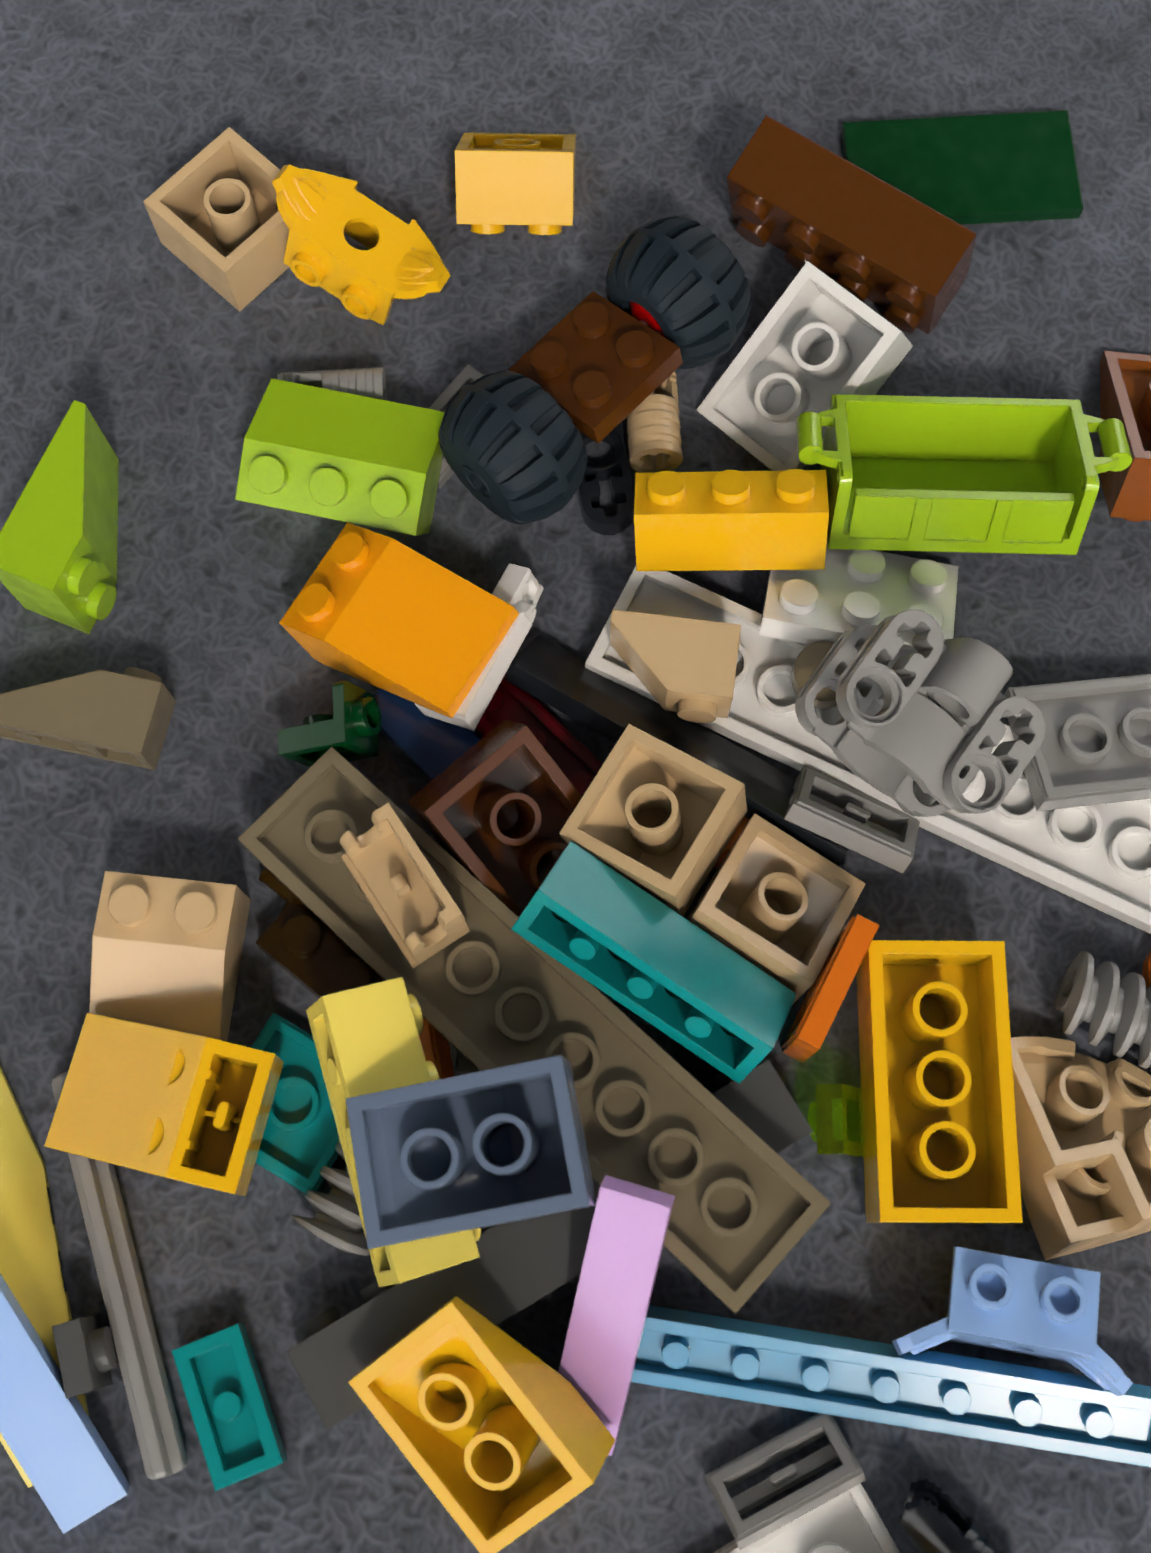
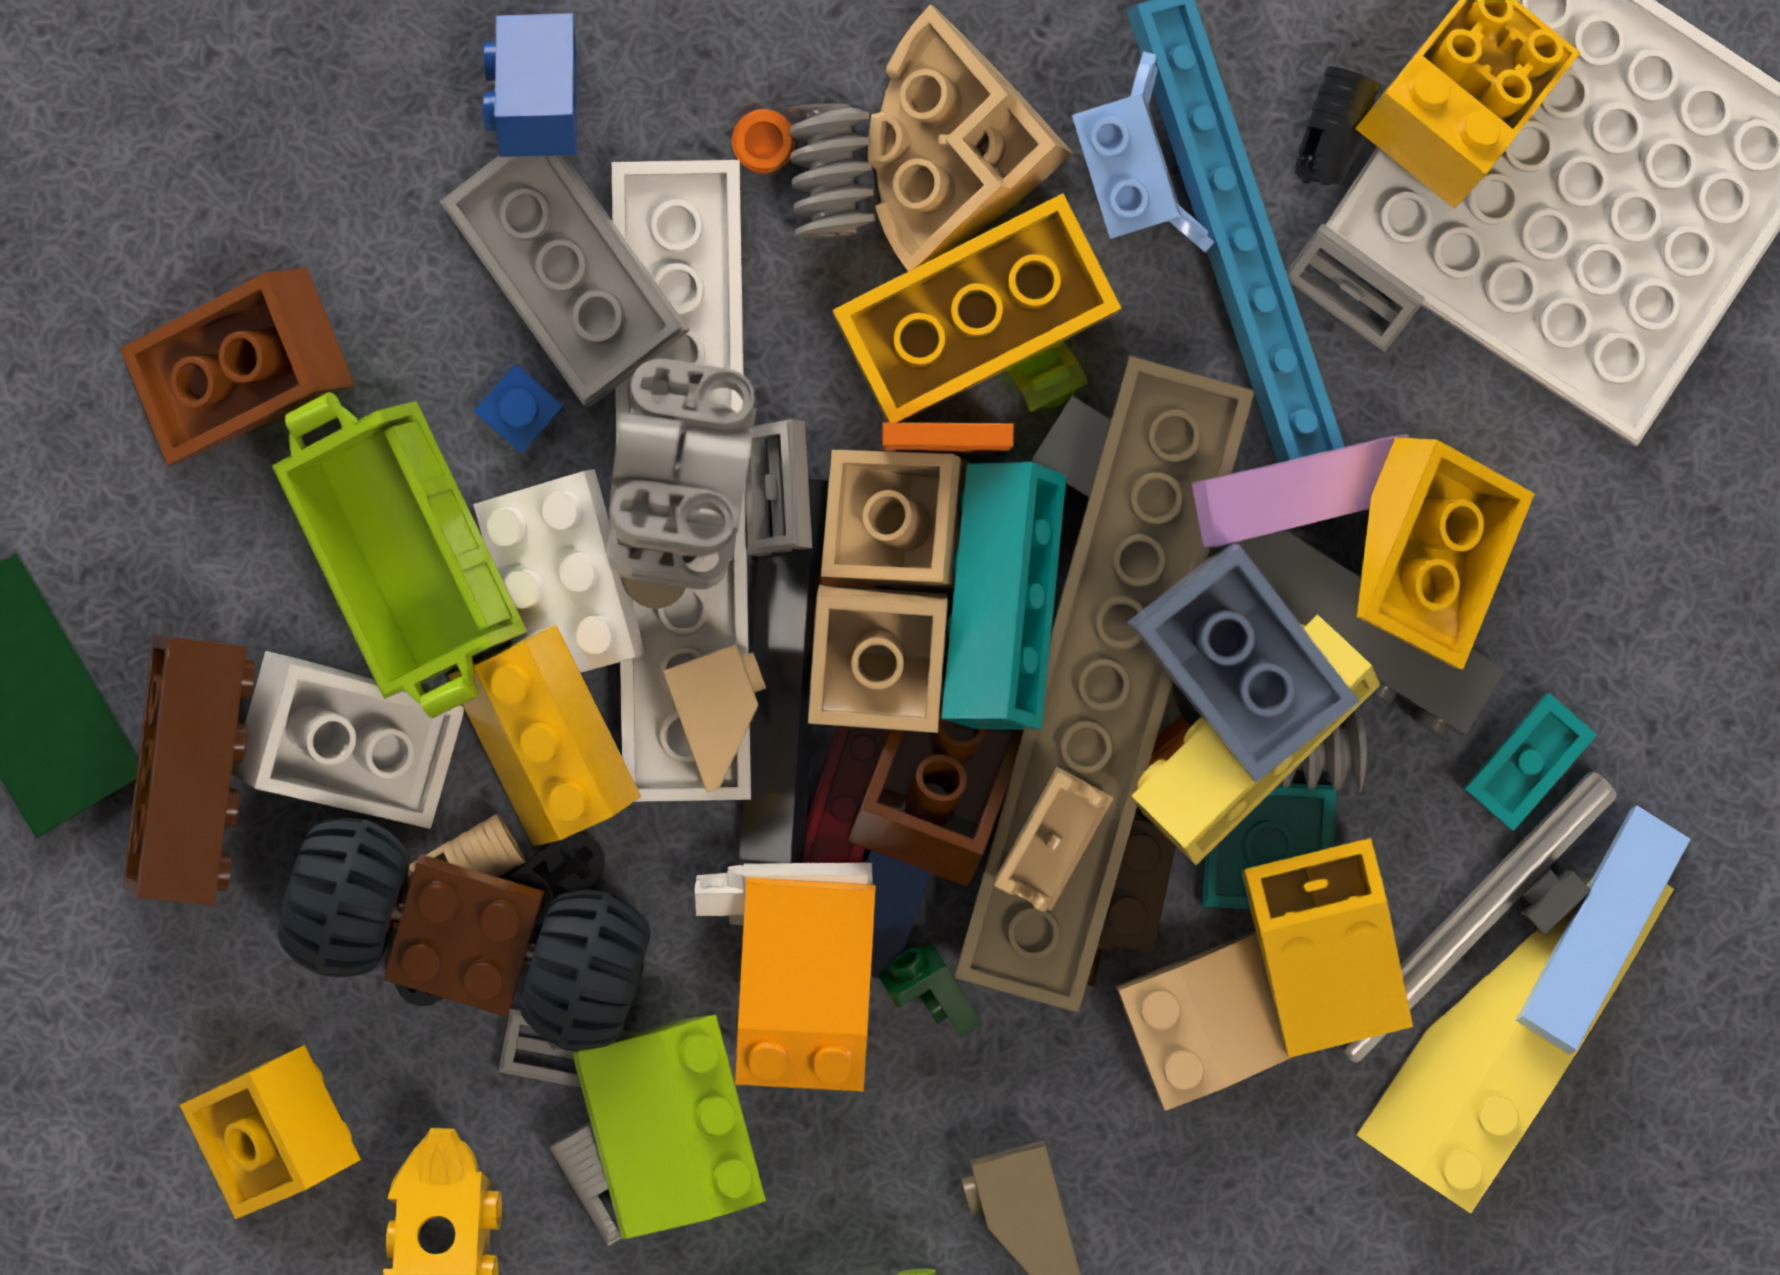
camera: 120 degrees left, 15 degrees up
(1026, 642) = (519, 408): none -> blue plate

